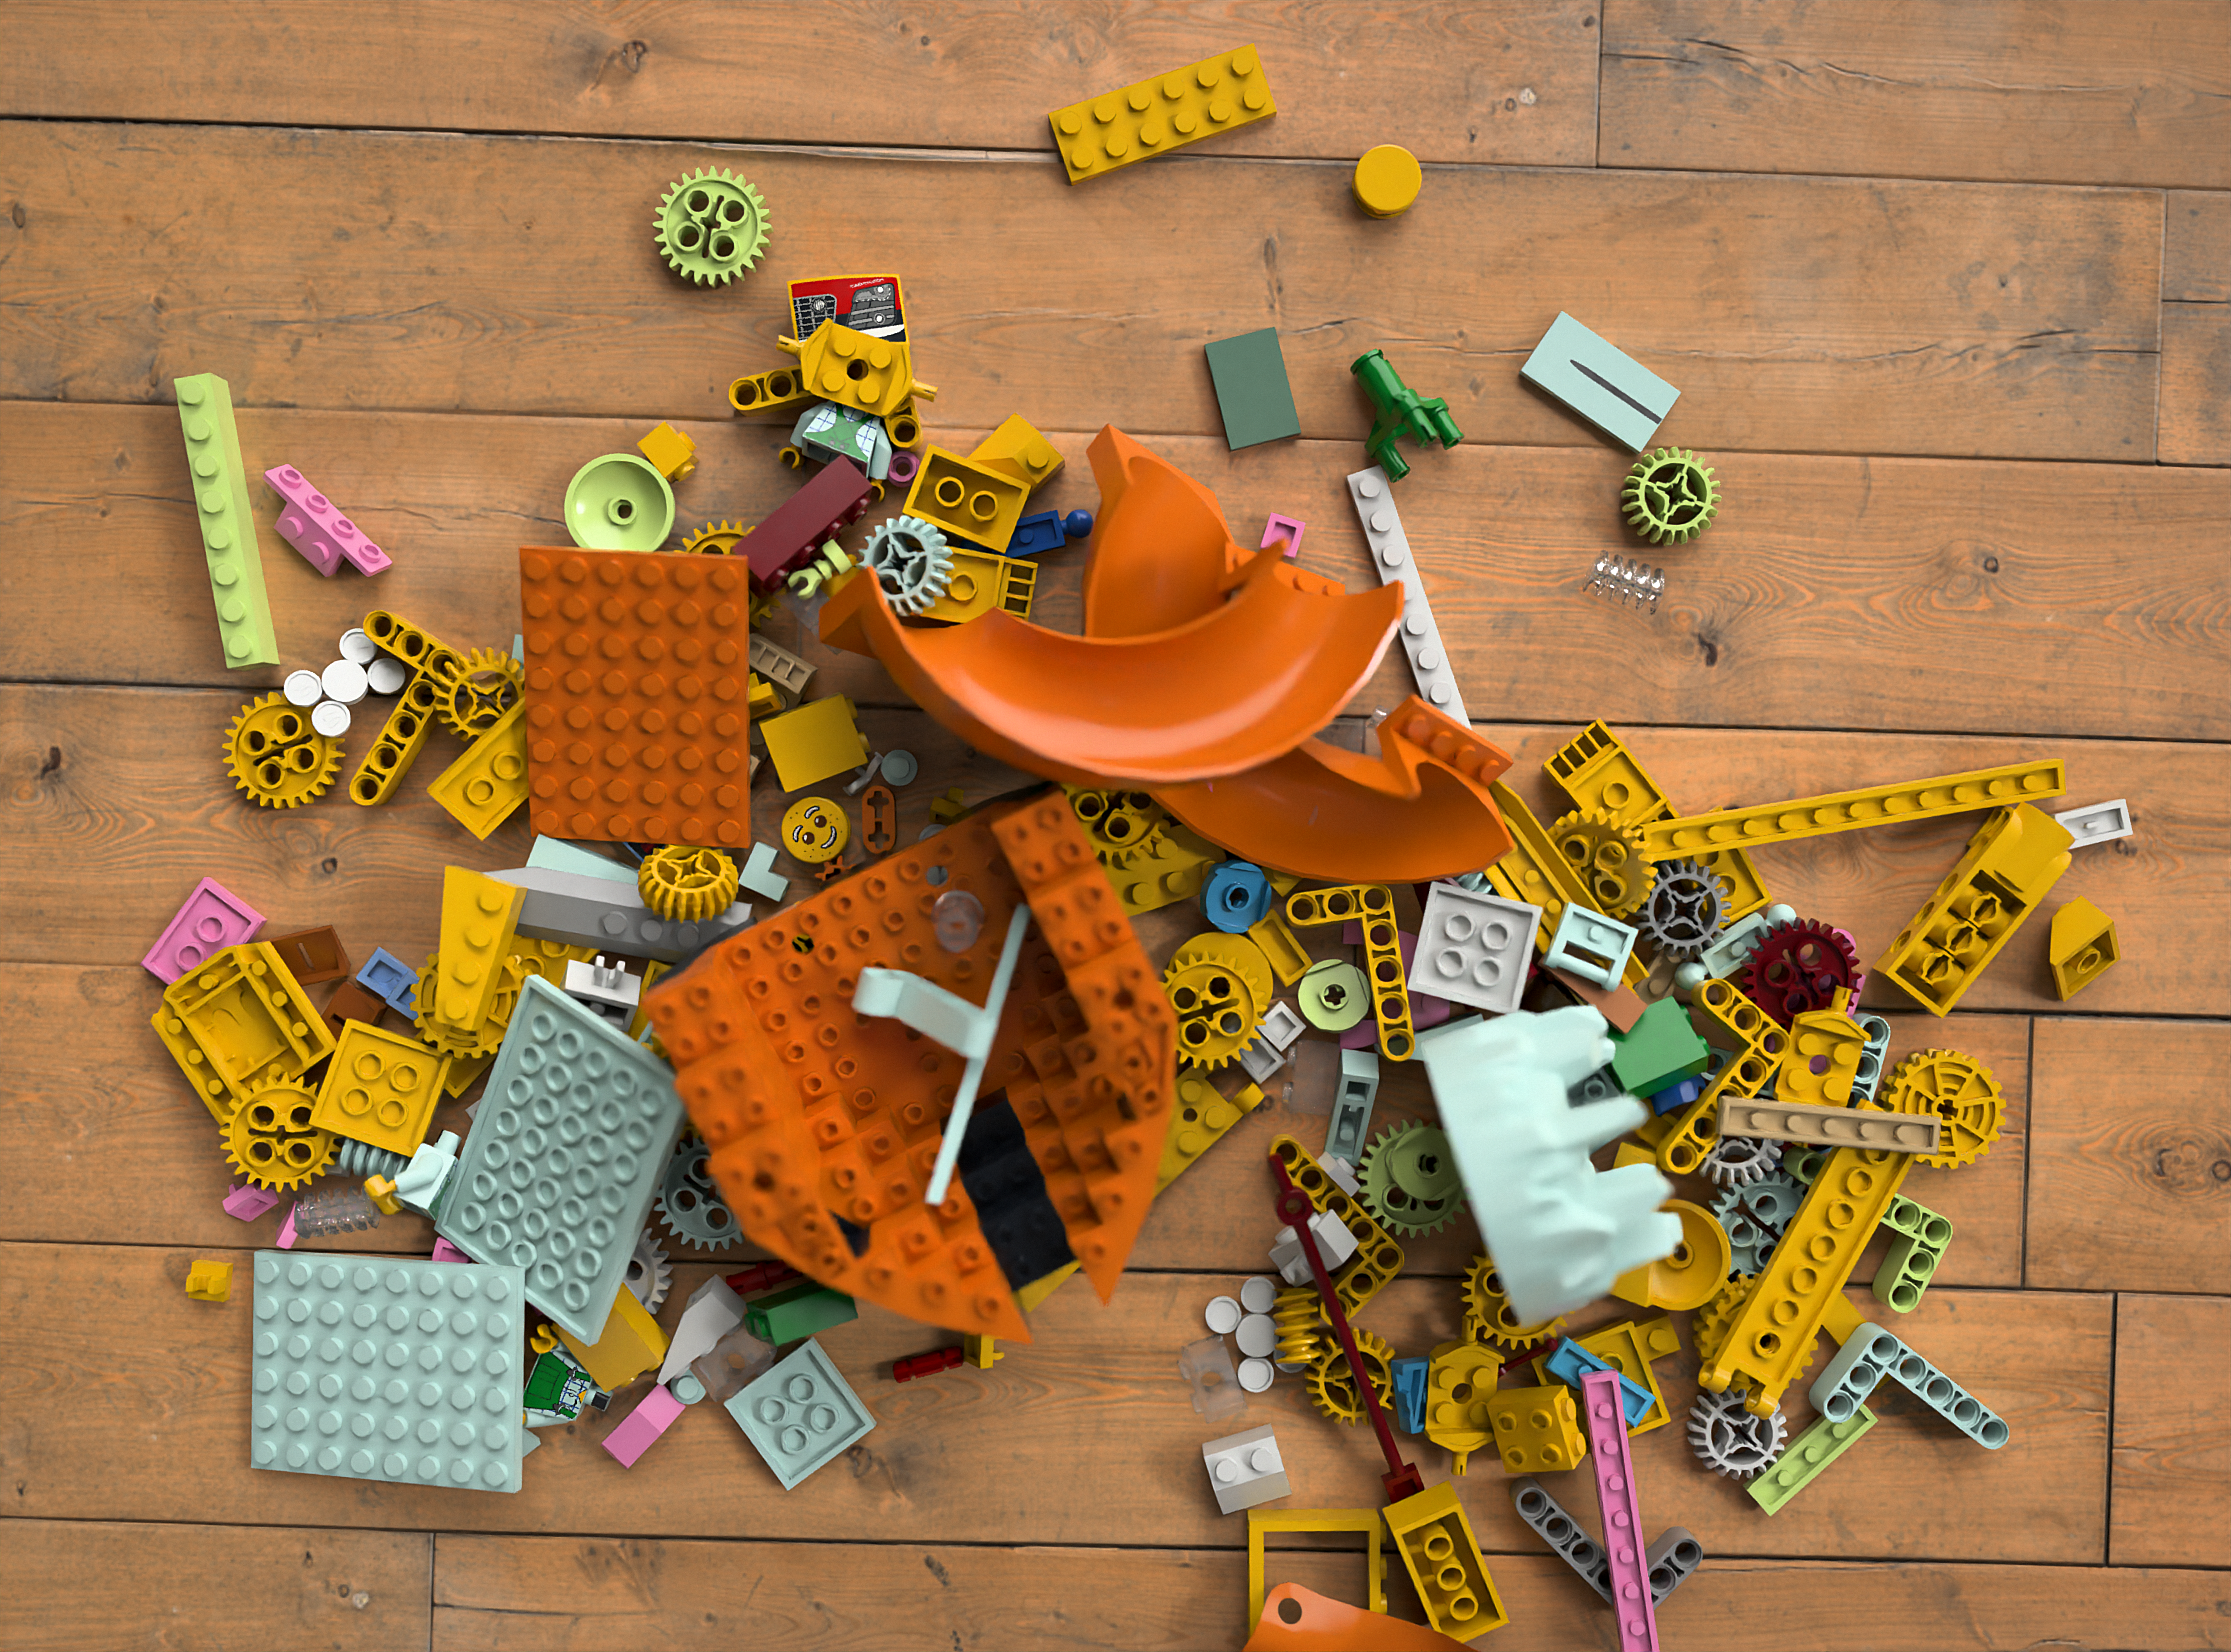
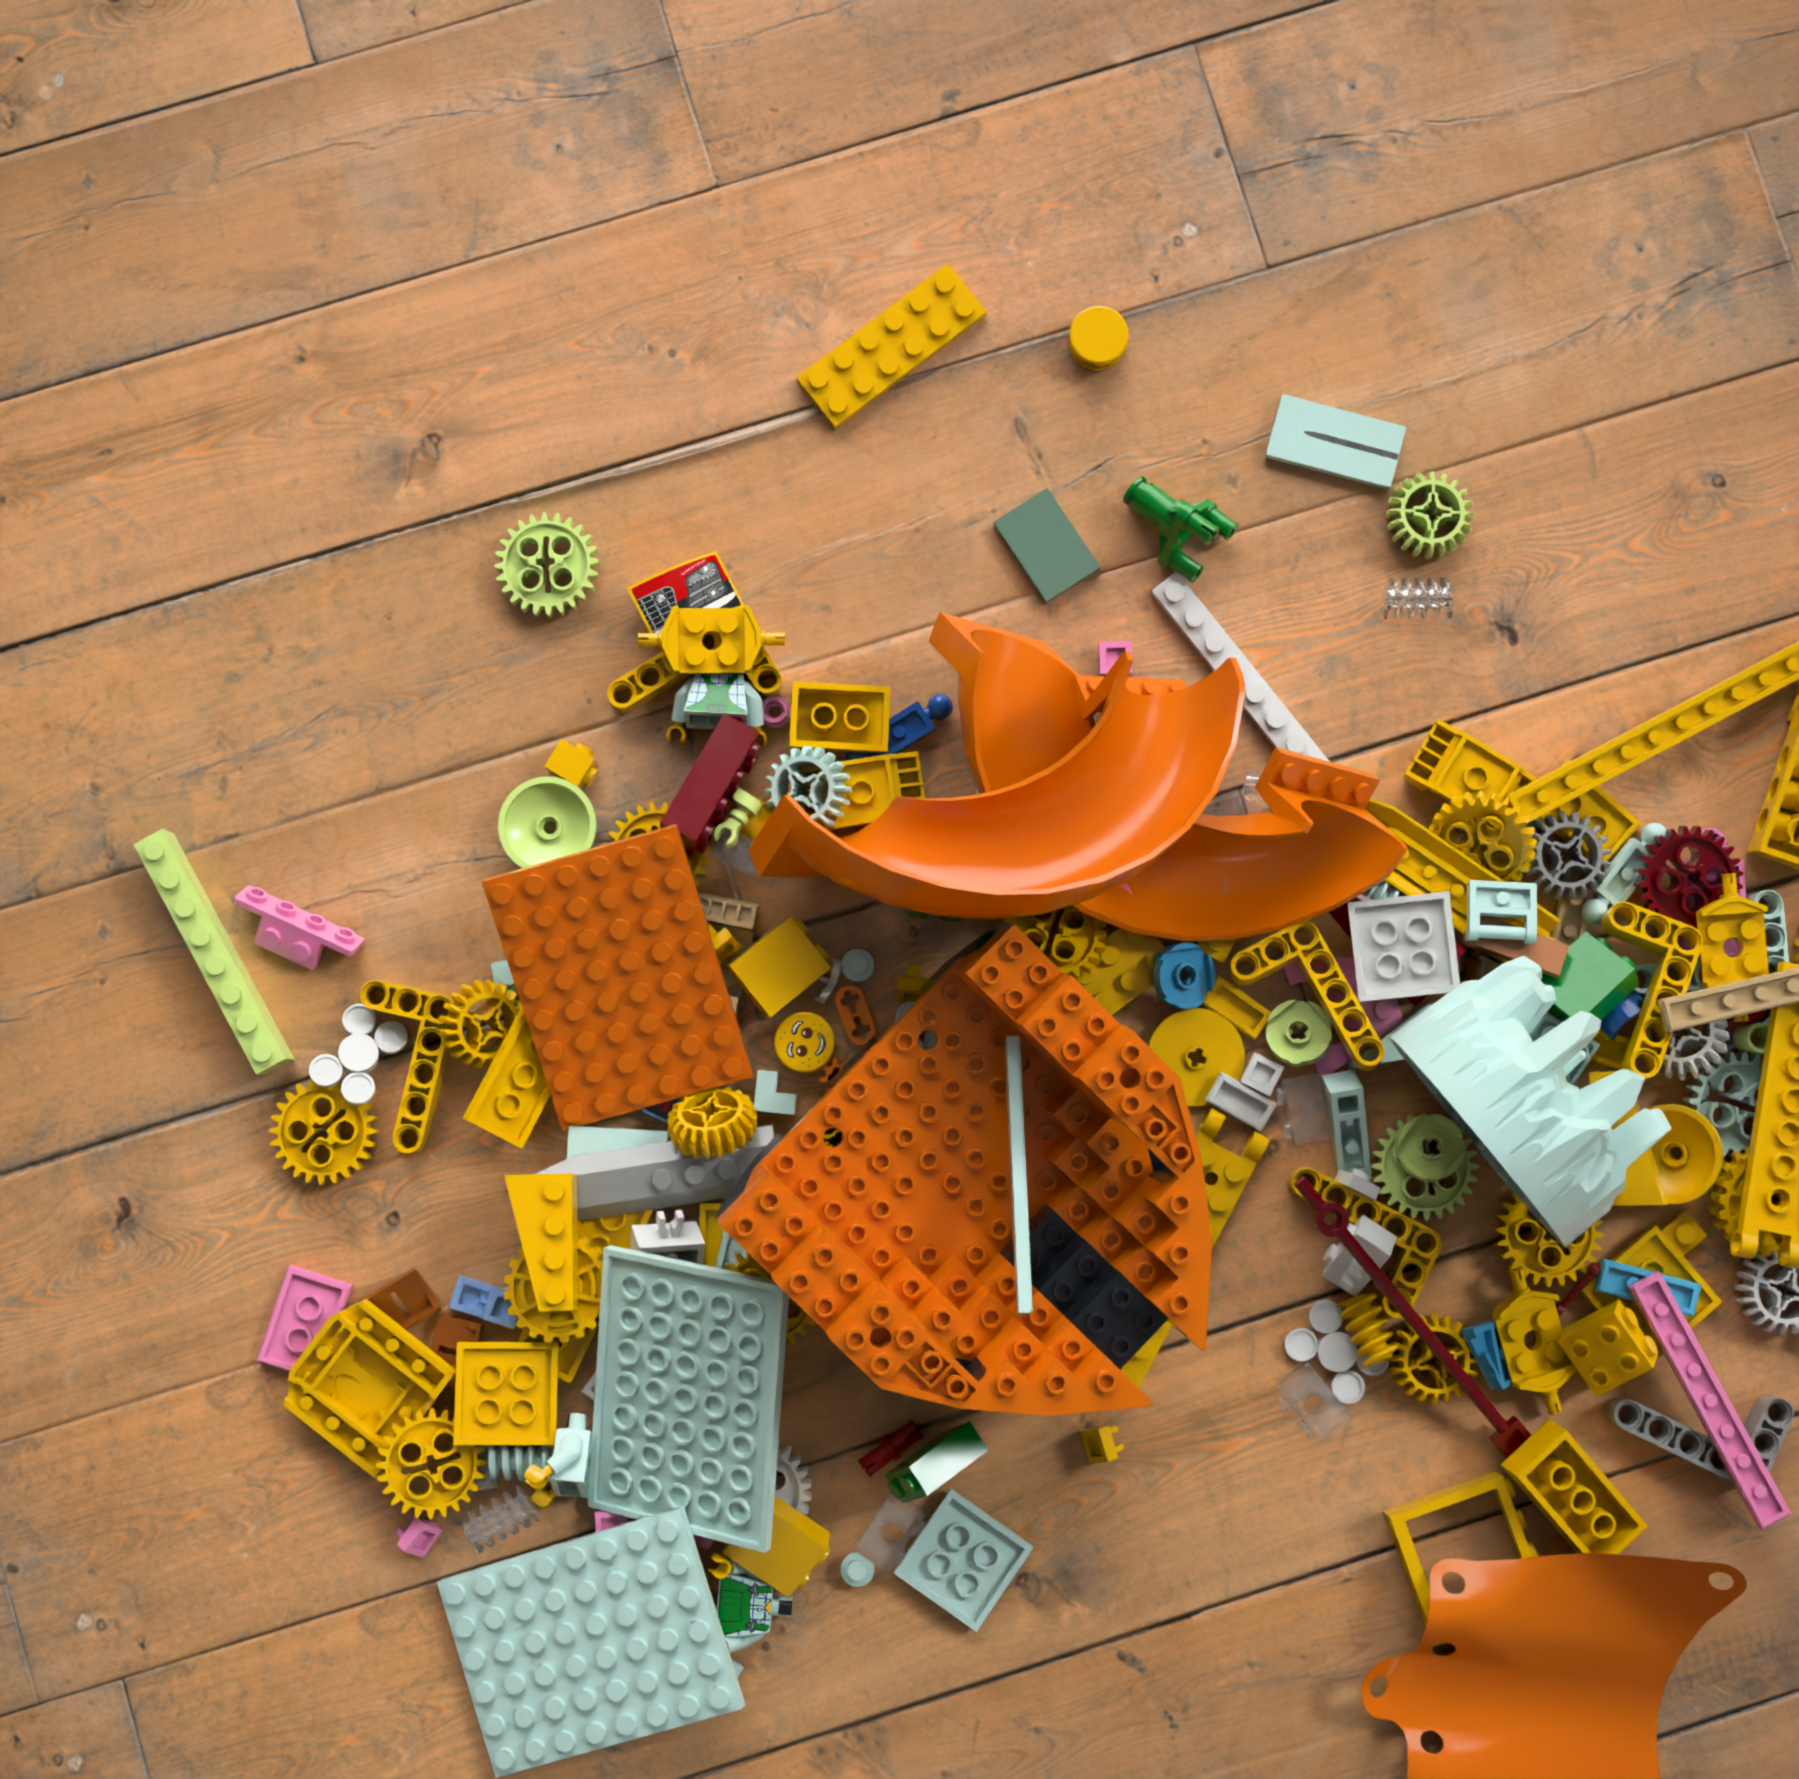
camera: 20 degrees left, 5 degrees down
(209, 1280) = (405, 1621): yellow tile -> none
(286, 1231) = (459, 1553): bright pink tile -> none
(642, 1426) = (829, 1618): bright pink slope -> none
(696, 1220) = (815, 1418): light aqua gear -> none
(707, 1317) = (853, 1501): white slope -> none
(926, 1009) = (961, 1152): light aqua beam -> none
(928, 1364) = (1060, 1477): red axle -> none
(957, 907) = (950, 1061): clear plant -> none
(1020, 453) = (870, 663): yellow slope -> none
(1218, 1042) = (1214, 1104): yellow gear -> none
(1246, 1469) = (1371, 1473): white slope -> none

